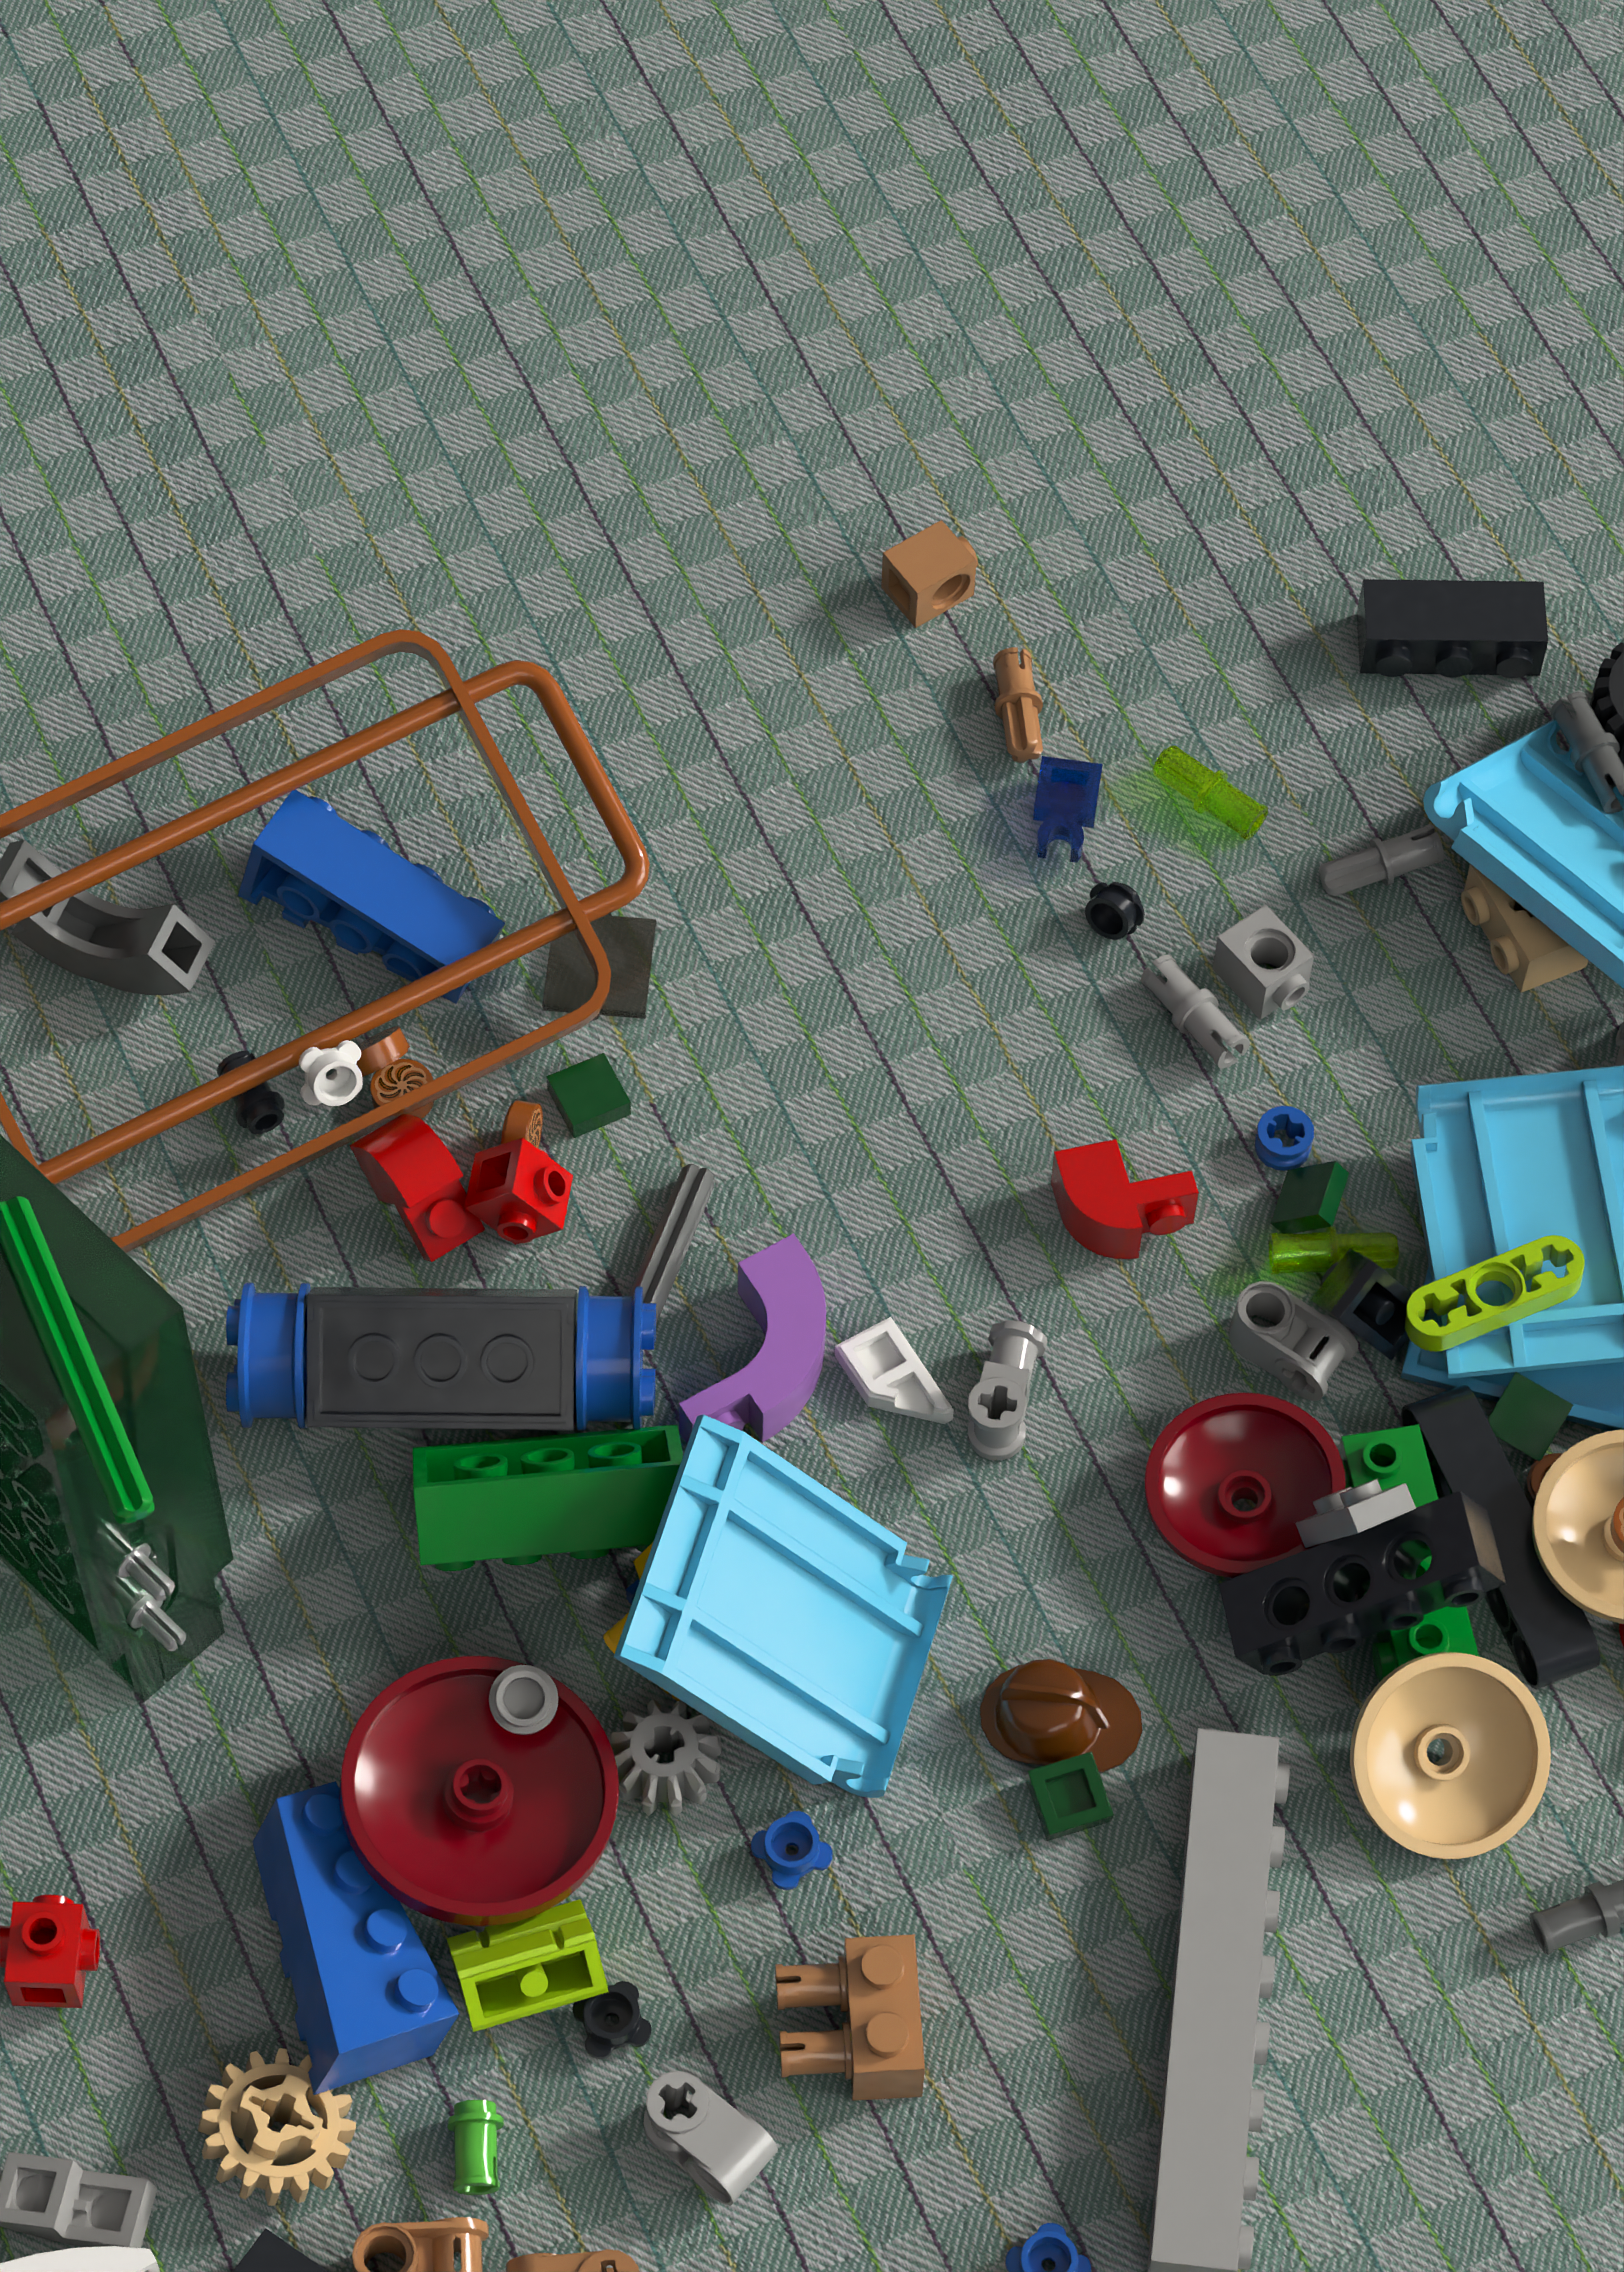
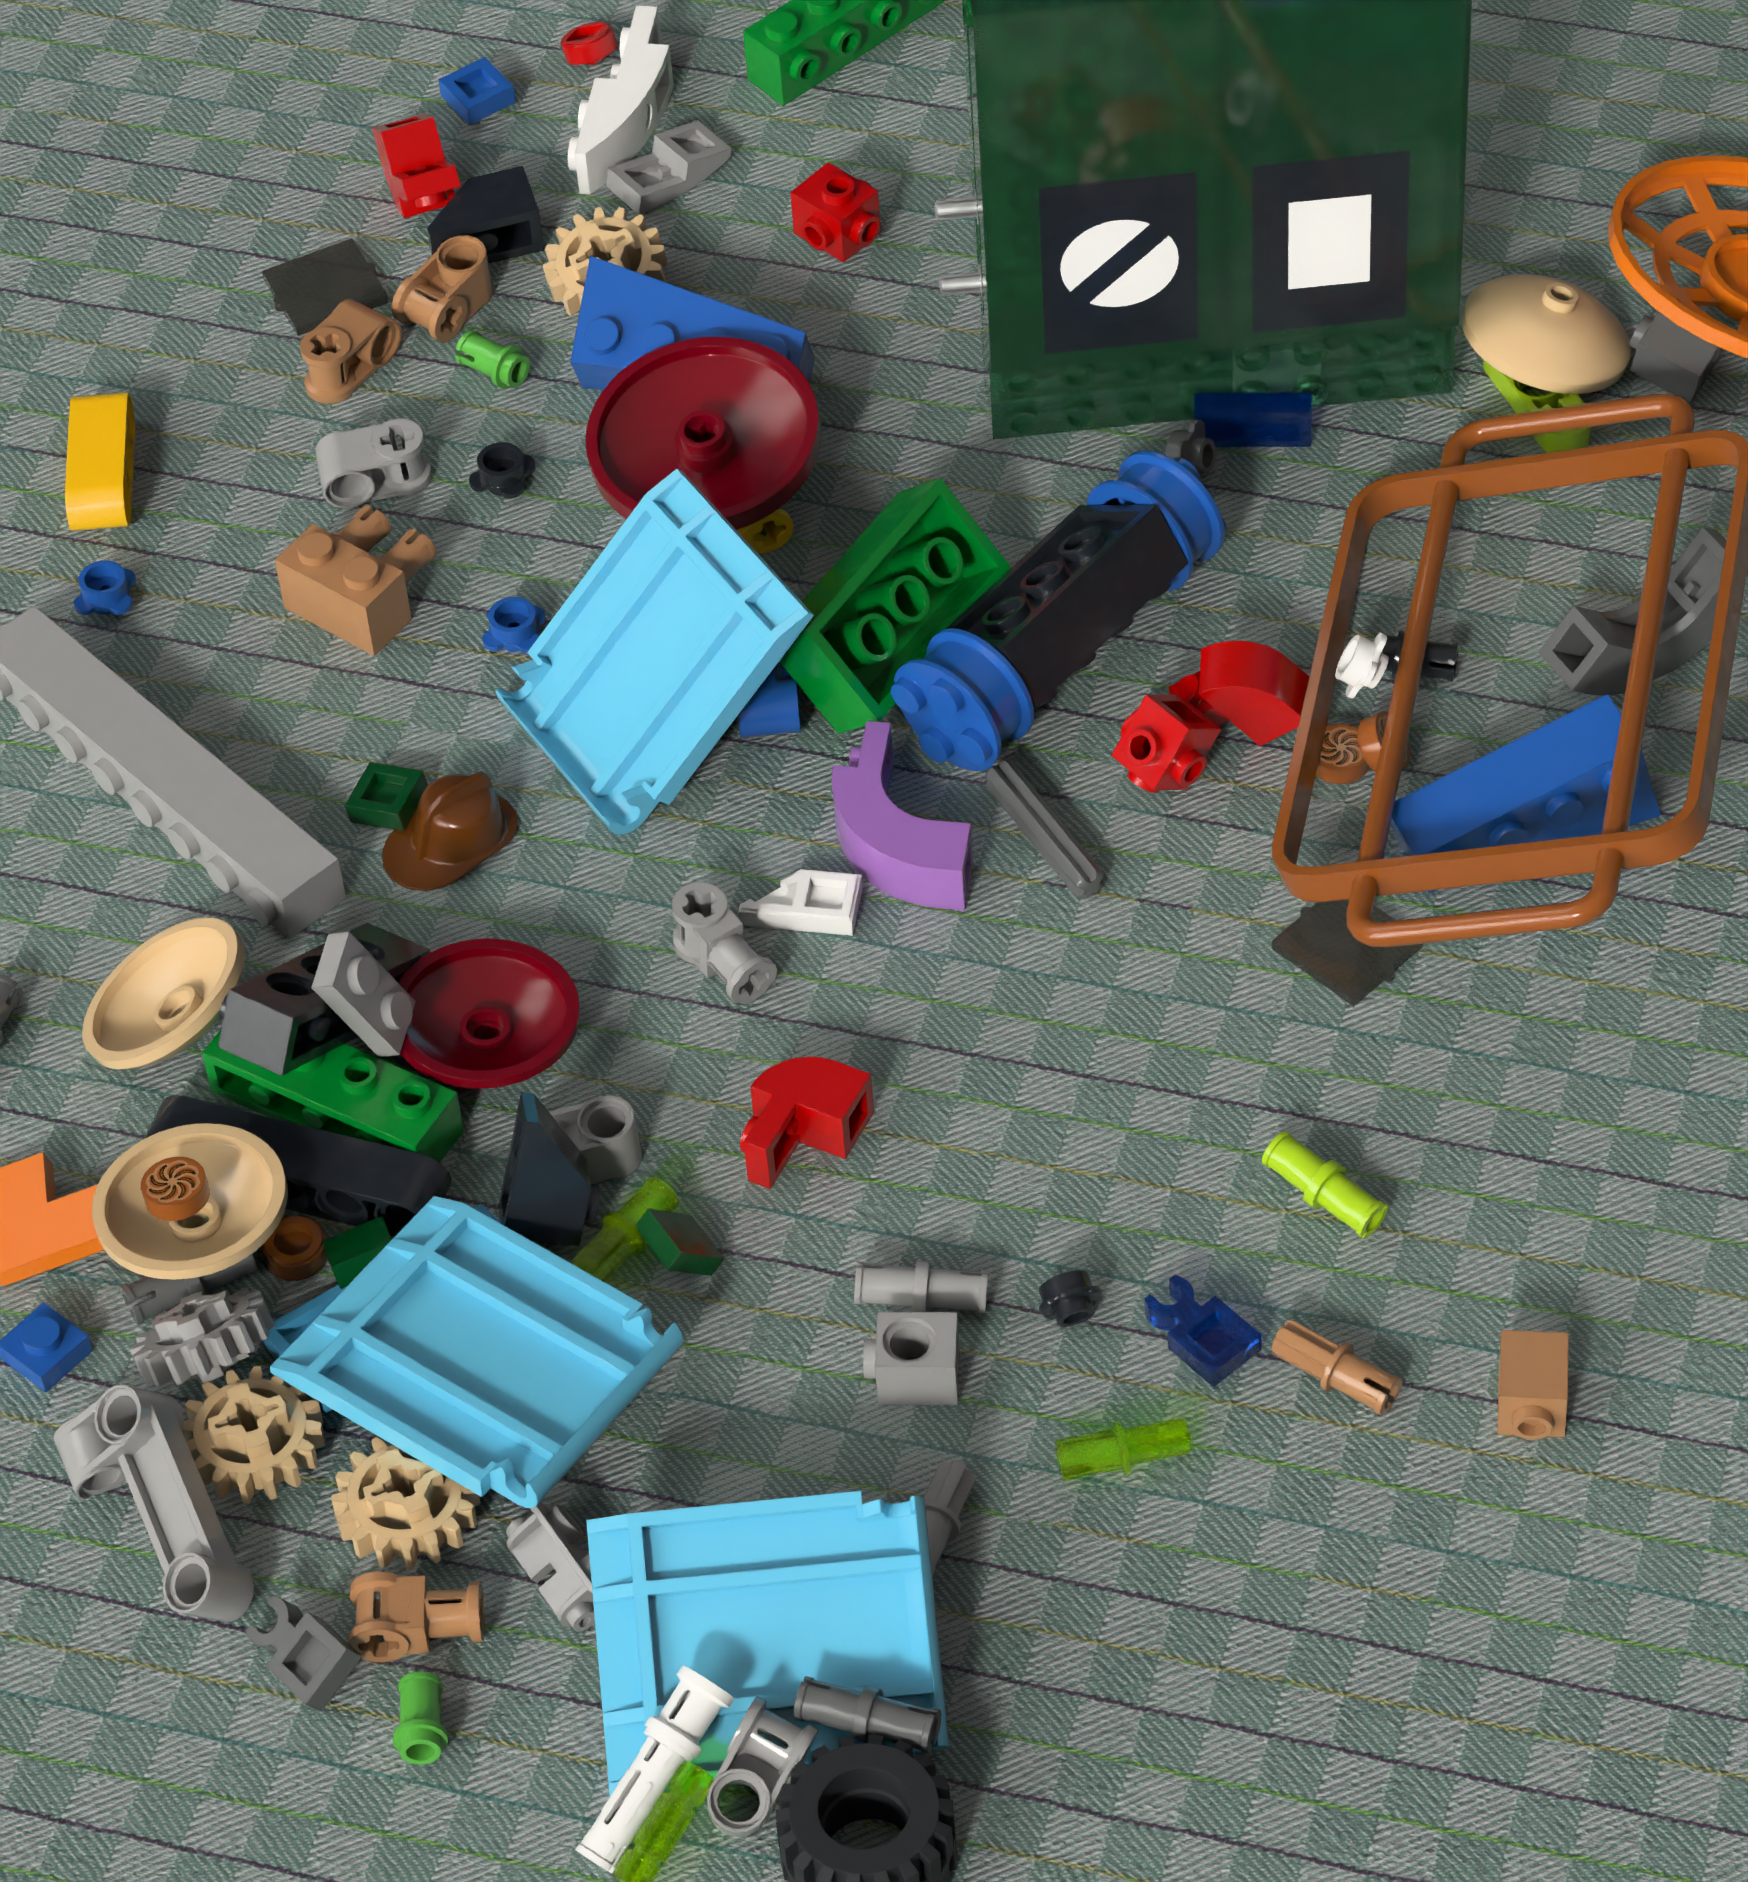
camera: 135 degrees right, 10 degrees down
(523, 1121) = (1225, 789): dark orange tile -> none
(523, 1699) = (732, 471): light grey plate -> none
(527, 1966) = (556, 436): lime brick -> none
(588, 1095) = (1228, 863): dark green tile -> none
(861, 815) = (1324, 1184): none -> lime pin
(1297, 1127) = (758, 1291): blue bush -> none
(1444, 1293) = (455, 1265): lime beam -> none
(1452, 627) = (1116, 1744): black brick -> none

